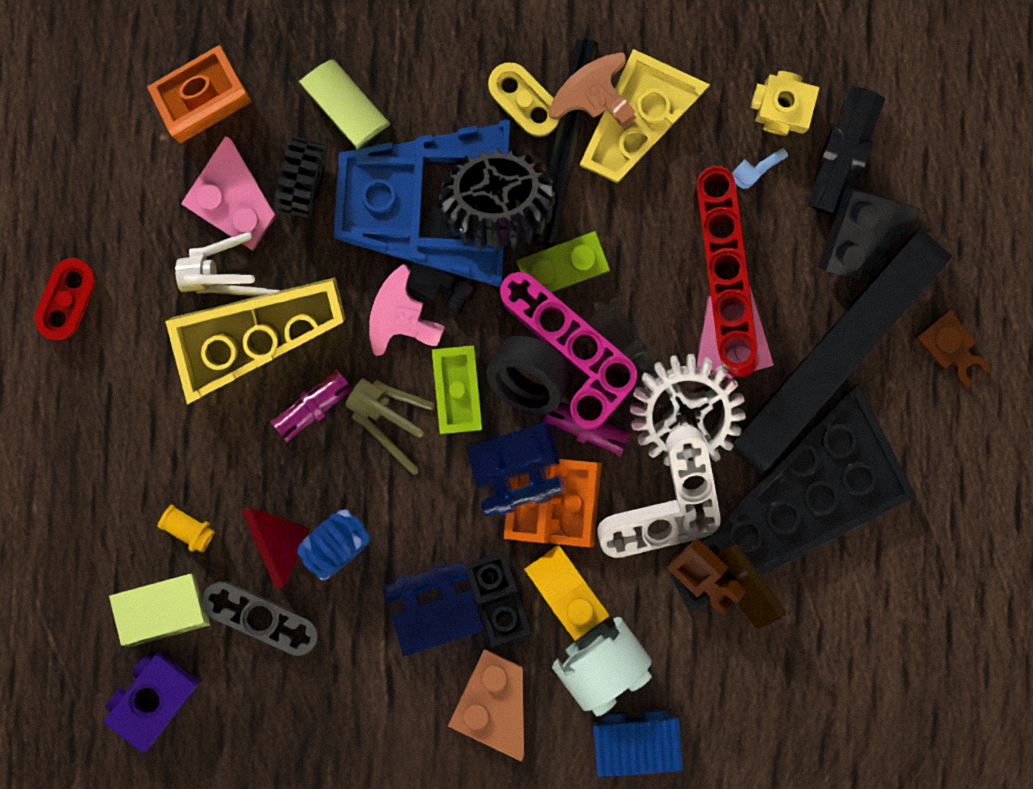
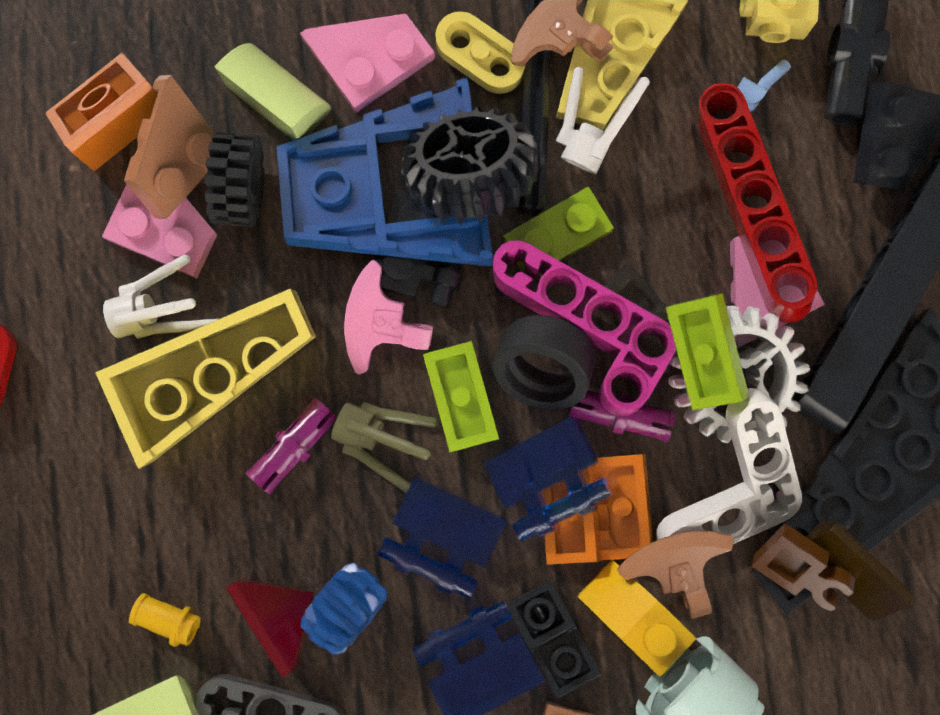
camera: 10 degrees left, 5 degrees down
(251, 145) = (169, 151): none -> nougat wing
(429, 84) = (369, 55): none -> bright pink wing
(430, 491) = (448, 522): none -> clear blue plate
(601, 197) = (589, 144): none -> white plant
(609, 557) = (679, 565): none -> nougat piece
(658, 391) = (707, 352): none -> lime plate

